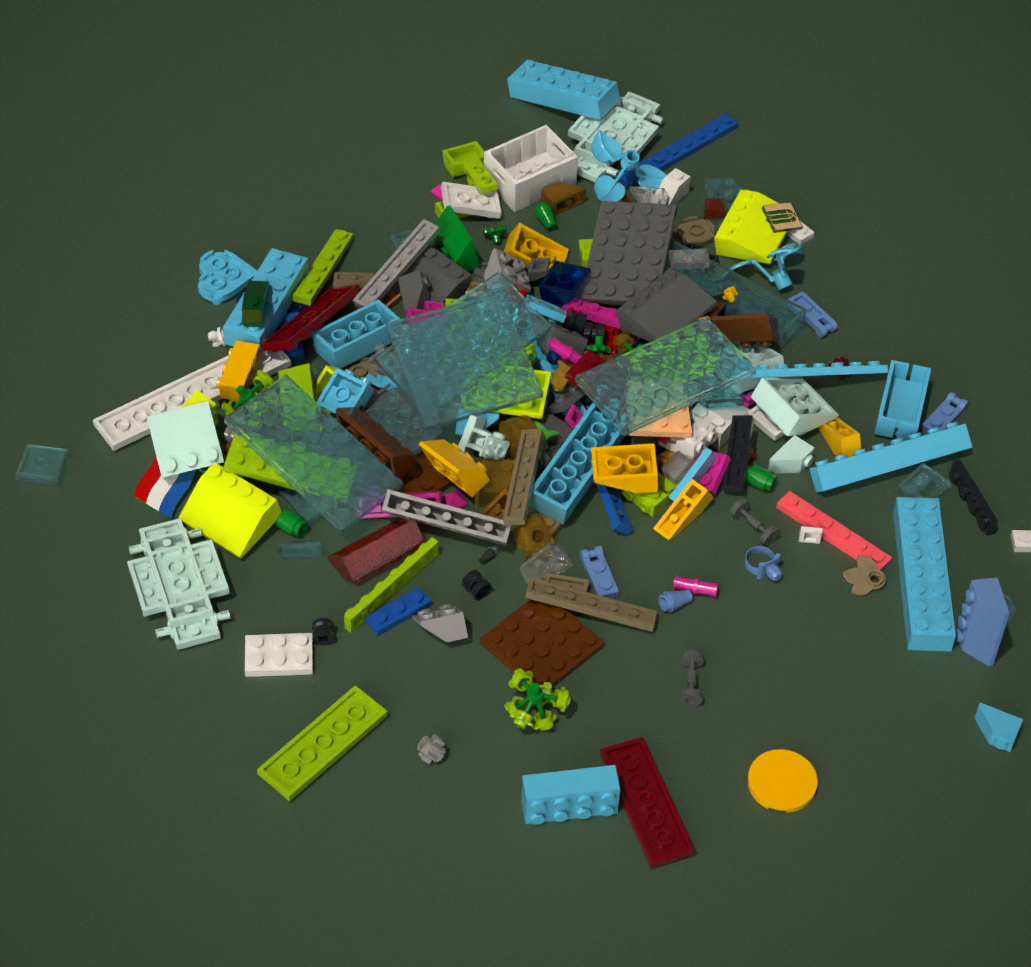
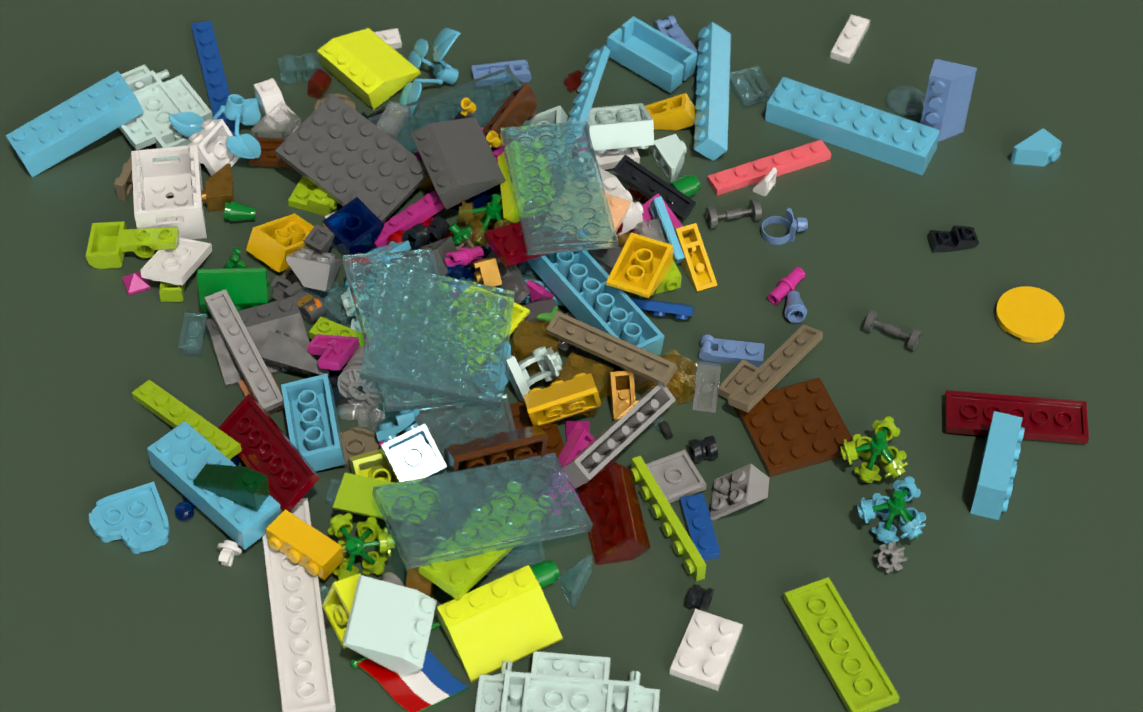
camera: 65 degrees left, 0 degrees up
(351, 278) = (222, 402): dark tan plate -> none
(437, 576) = (677, 476): none -> light grey plate
(479, 728) = (894, 505): none -> medium azure plant
(591, 168) = (212, 145): none -> white plate
(782, 217) = (372, 38): piece -> none
(836, 695) = (955, 240): none -> black slope
(861, 576) = (830, 168): dark tan plate -> none
(973, 497) = (783, 59): black plate -> none

